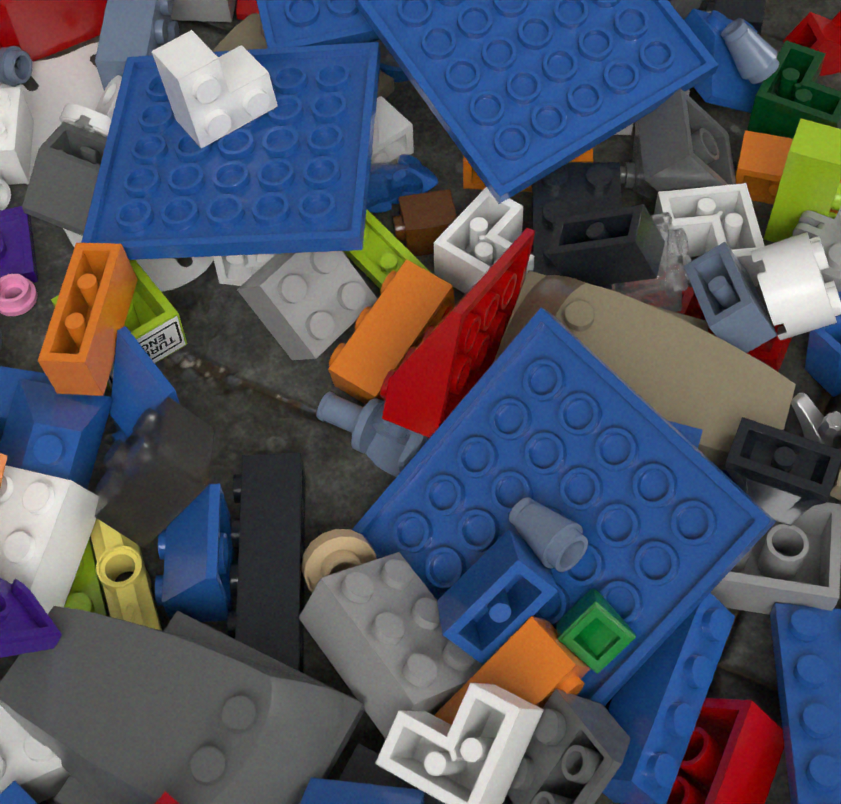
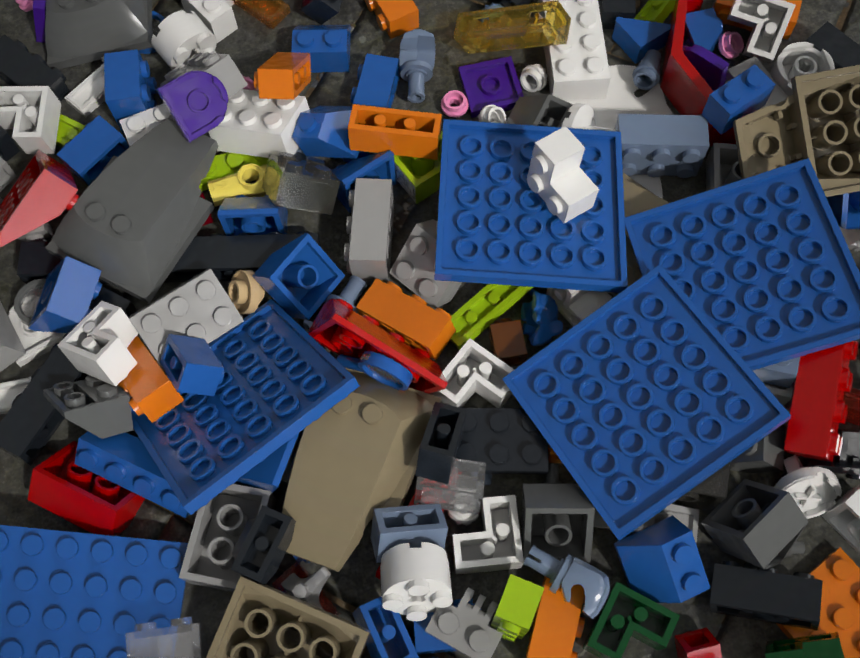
camera: 90 degrees right, 10 degrees up
(52, 244) = (492, 114): none -> white plate
(247, 376) = (370, 230): none -> light grey brick
(325, 473) = (299, 277): none -> blue slope
(502, 318) = (379, 368): none -> blue piece
(551, 536) = (218, 389): sand blue cone -> none
(594, 631) = (165, 419): green slope -> none
(750, 52) = (654, 578): sand blue cone -> none
(763, 129) = (570, 572): none -> sand blue piece

